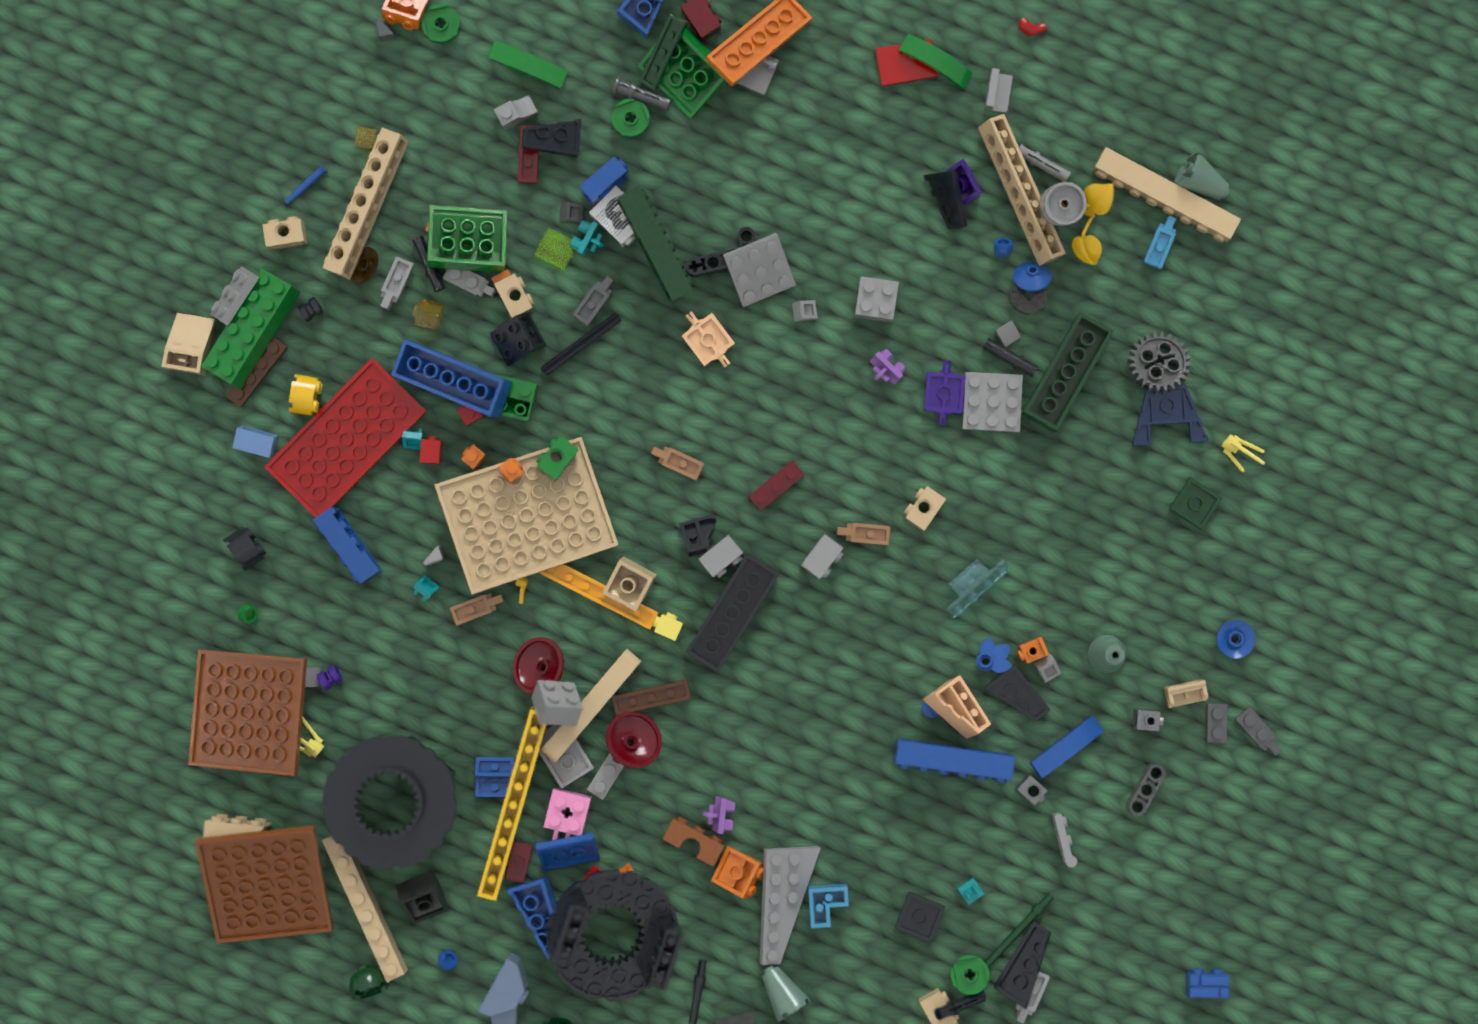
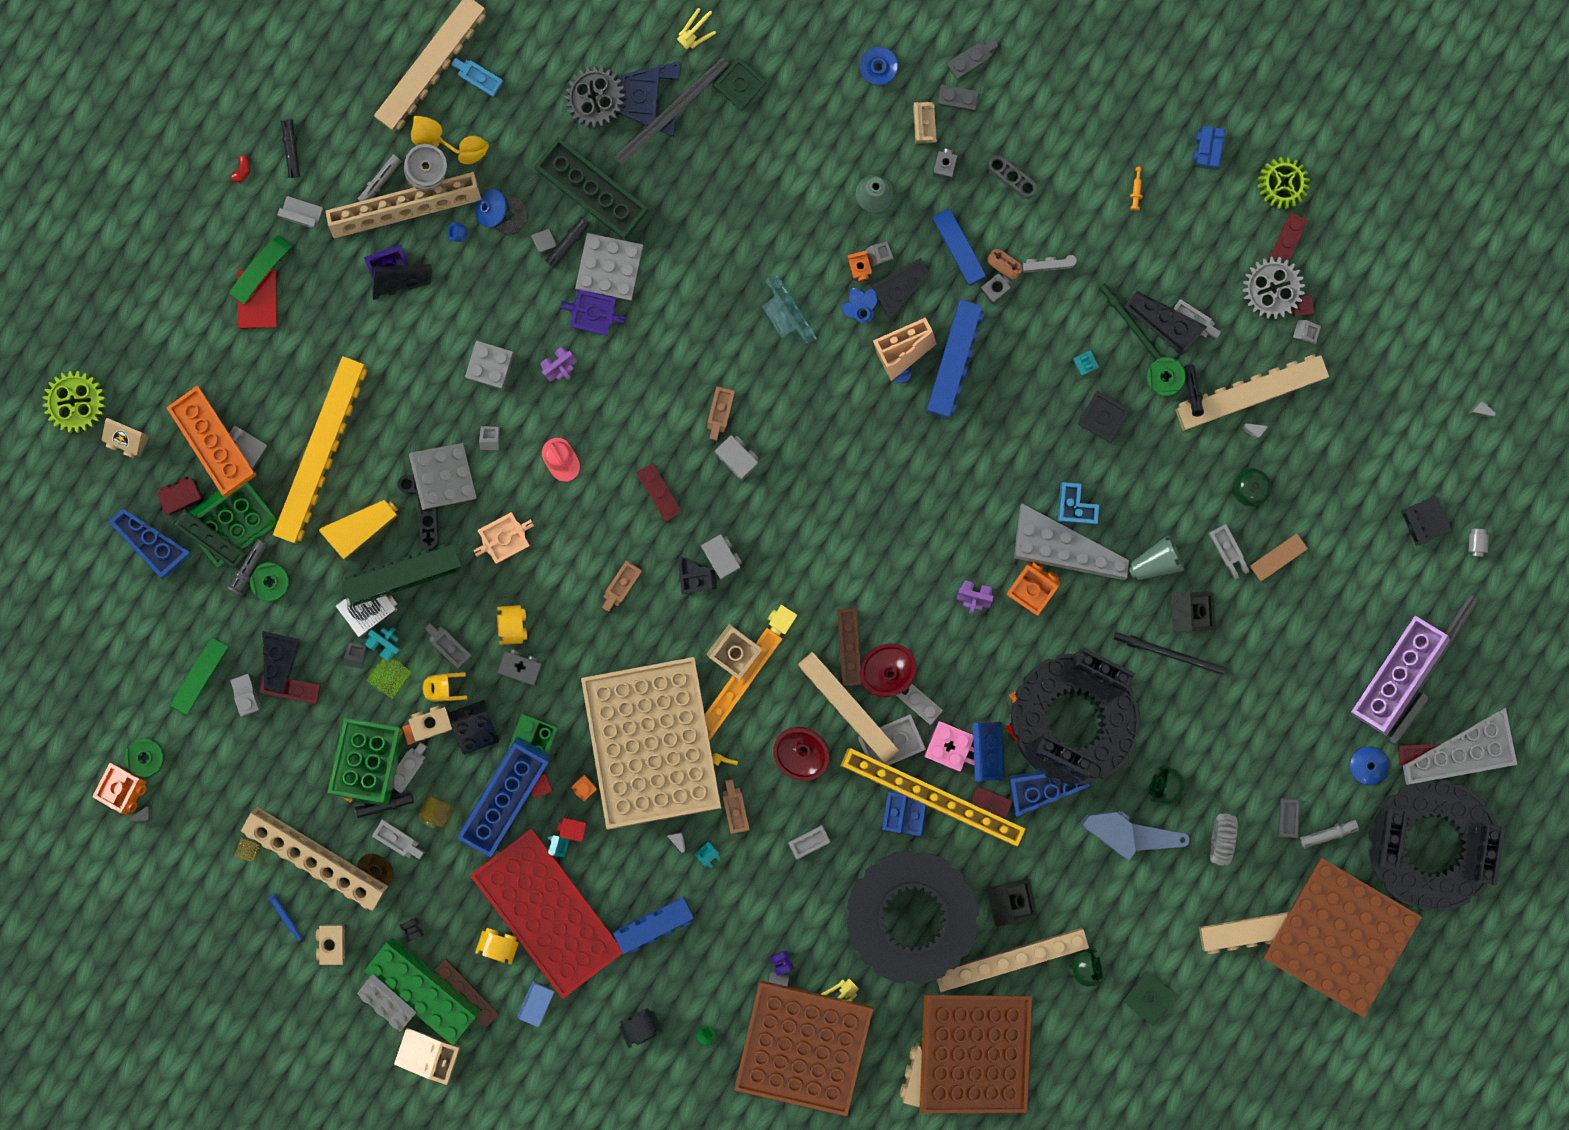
camera: 80 degrees left, 0 degrees up
(447, 960) = (1077, 886): blue tile -> none
(452, 686) = (809, 842): none -> light grey plate
(511, 470) = (604, 750): orange brick -> none
(550, 300) = (441, 687): none -> yellow piece
(554, 469) = (609, 710): green brick -> none
(557, 703) = (840, 738): light grey brick -> none
(580, 364) = (509, 668): none -> dark grey brick
(581, 344) = (488, 665): black axle -> none
(604, 180) = (330, 616): blue window -> none
(623, 359) = (510, 625): none -> yellow brick
(694, 195) = (358, 528): none -> yellow slope
(709, 846) = (1004, 611): dark orange arch -> none
(732, 612) = (778, 554): black brick -> none
(766, 146) = (319, 450): none -> yellow brick
(794, 384) = (561, 459): none -> coral piece
(934, 503) = (699, 339): tan brick -> none
(1057, 795) = (1005, 264): none -> nougat beam
(1067, 69) = (290, 148): none -> black pin
(1152, 916) = (1136, 196): none -> light orange piece
(1157, 440) = (672, 111): none -> dark grey axle
(1201, 178) = (419, 26): sand green cone -> none

